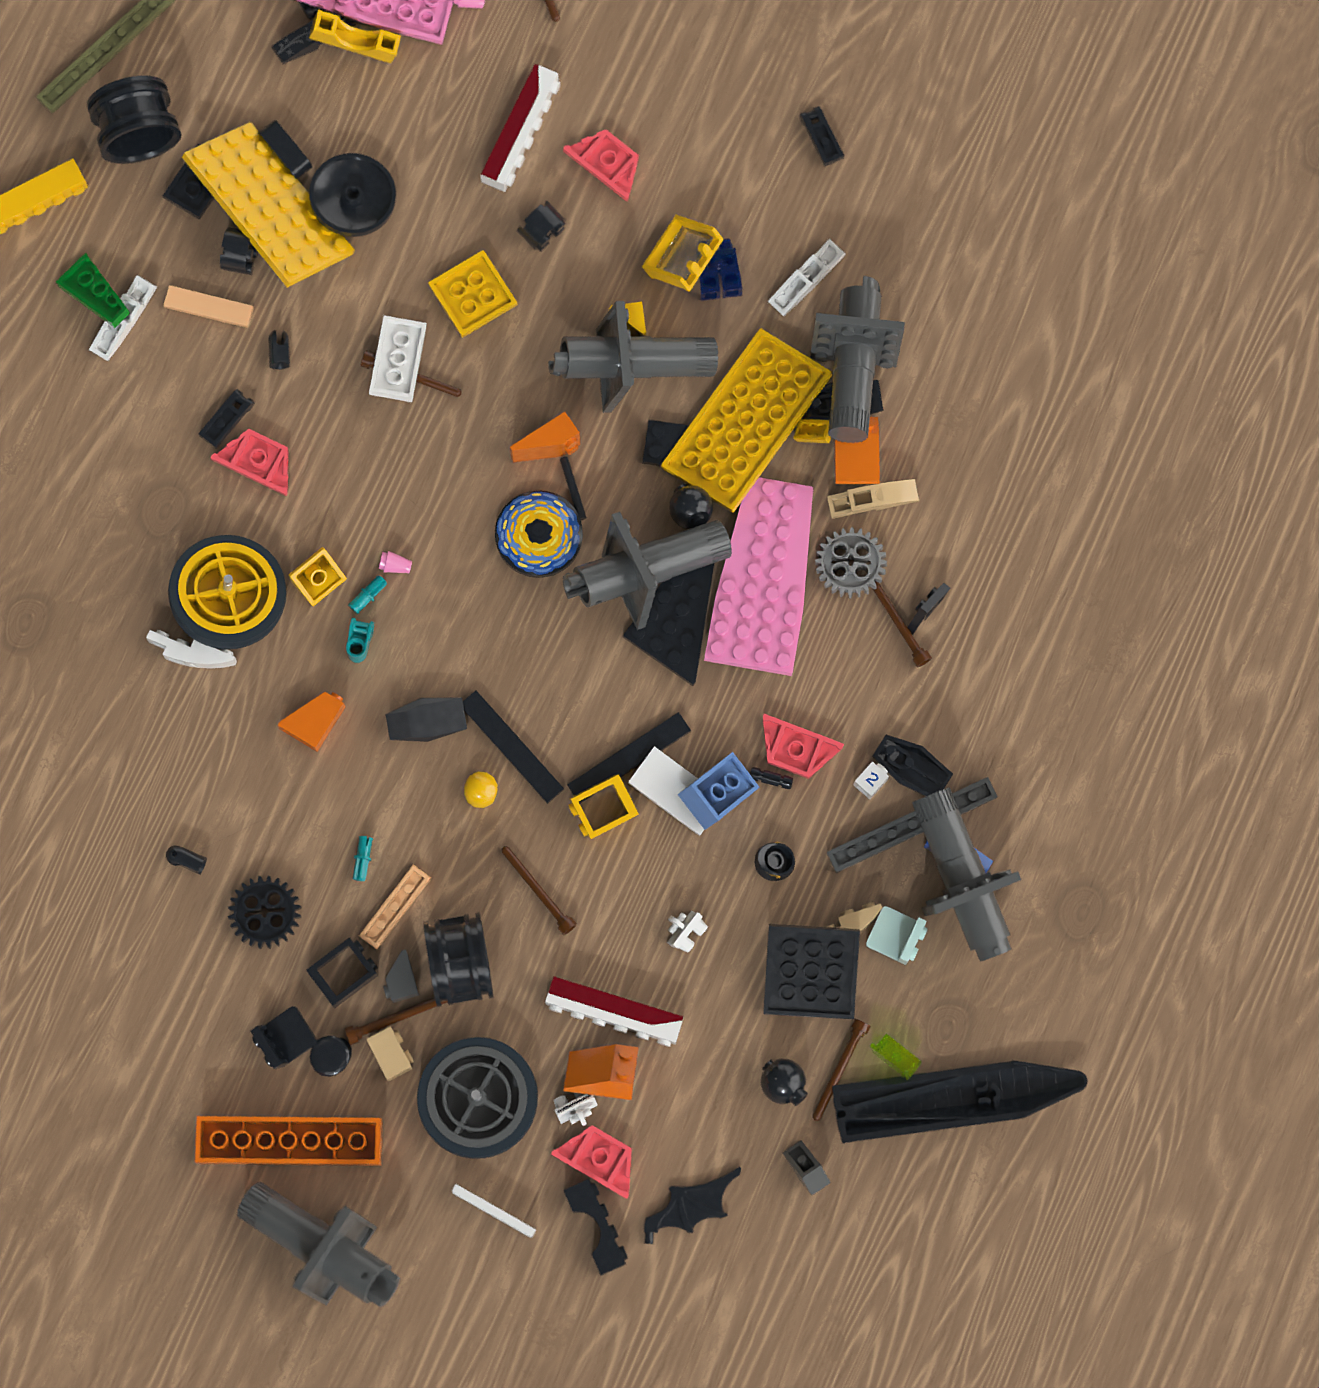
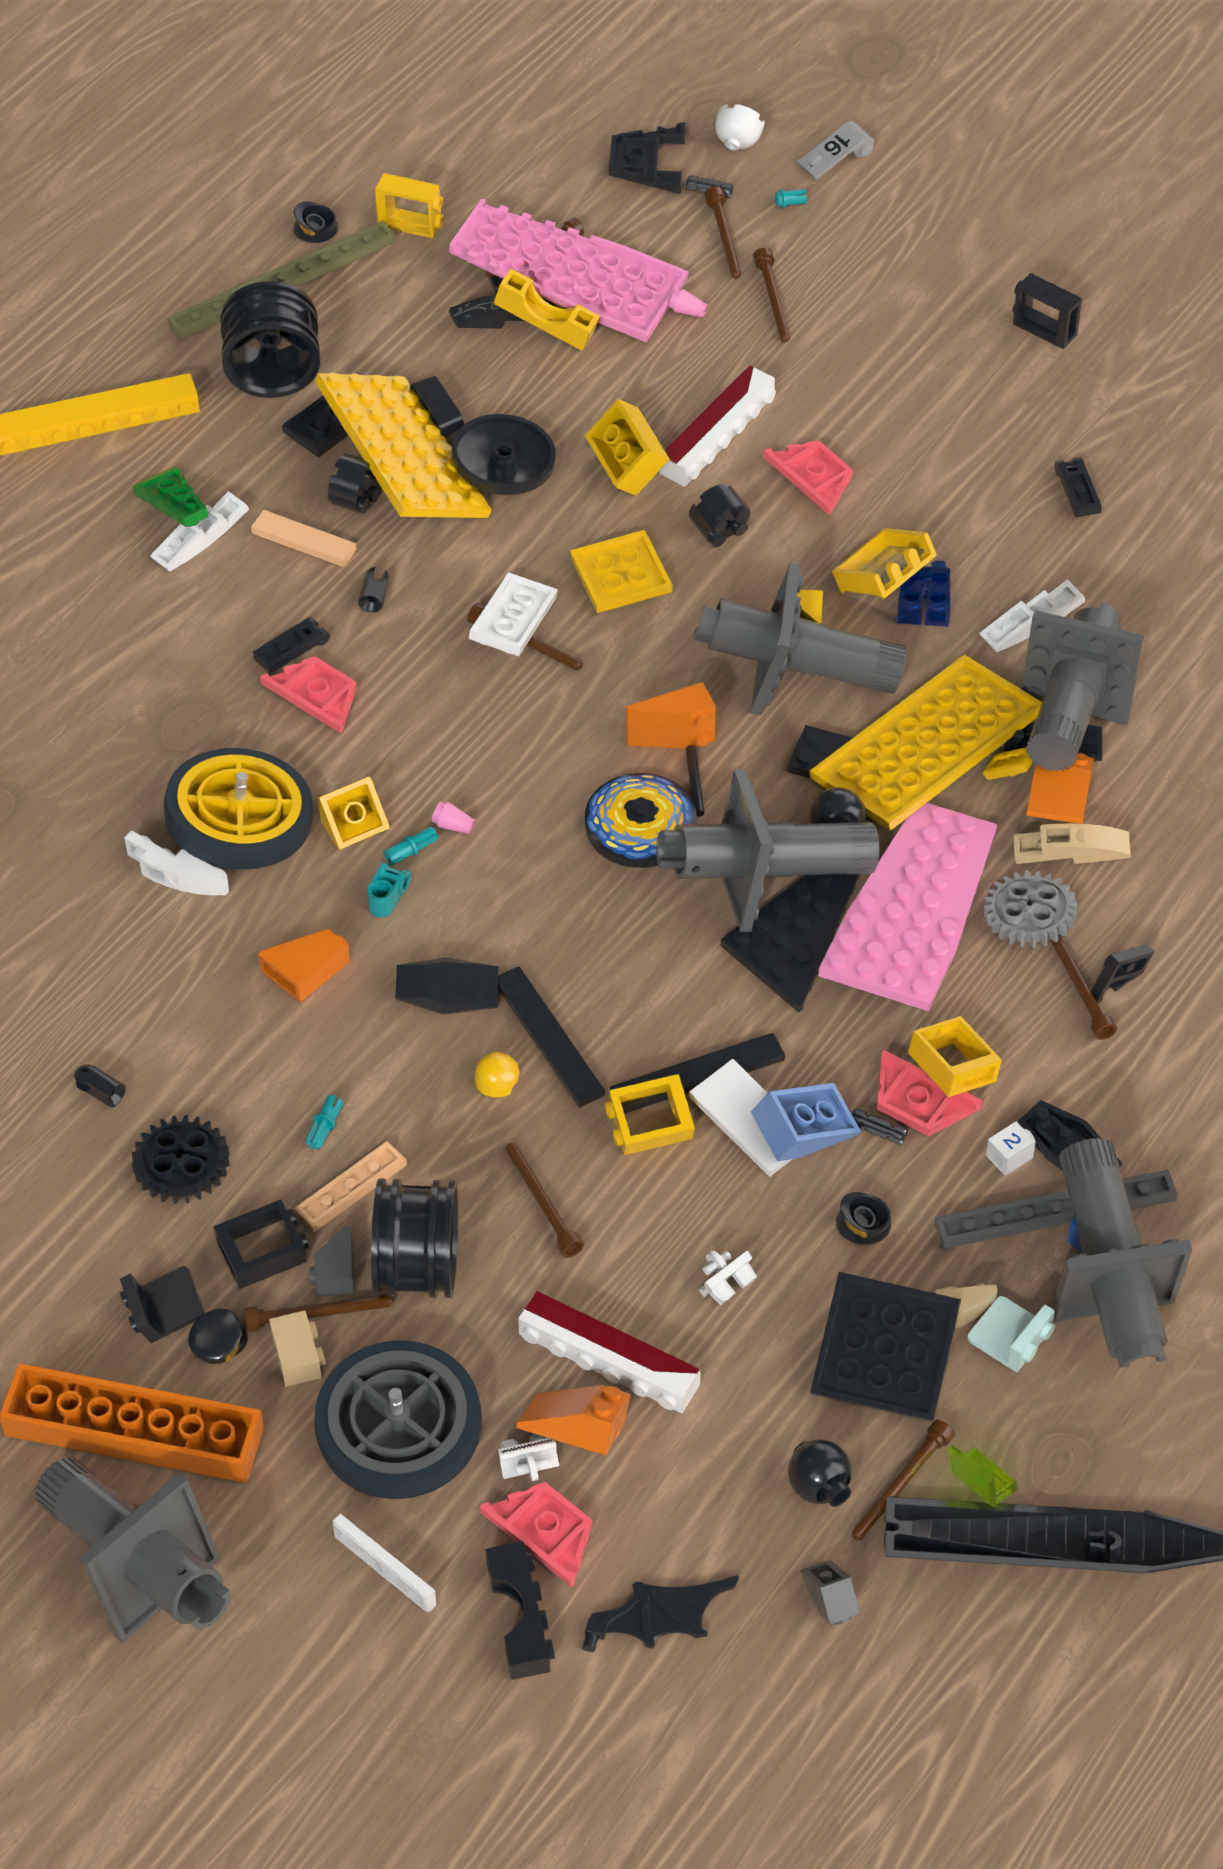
camera: 15 degrees right, 25 degrees down
(452, 172) = (627, 447): none -> yellow brick
(826, 696) = (978, 1071): none -> yellow window

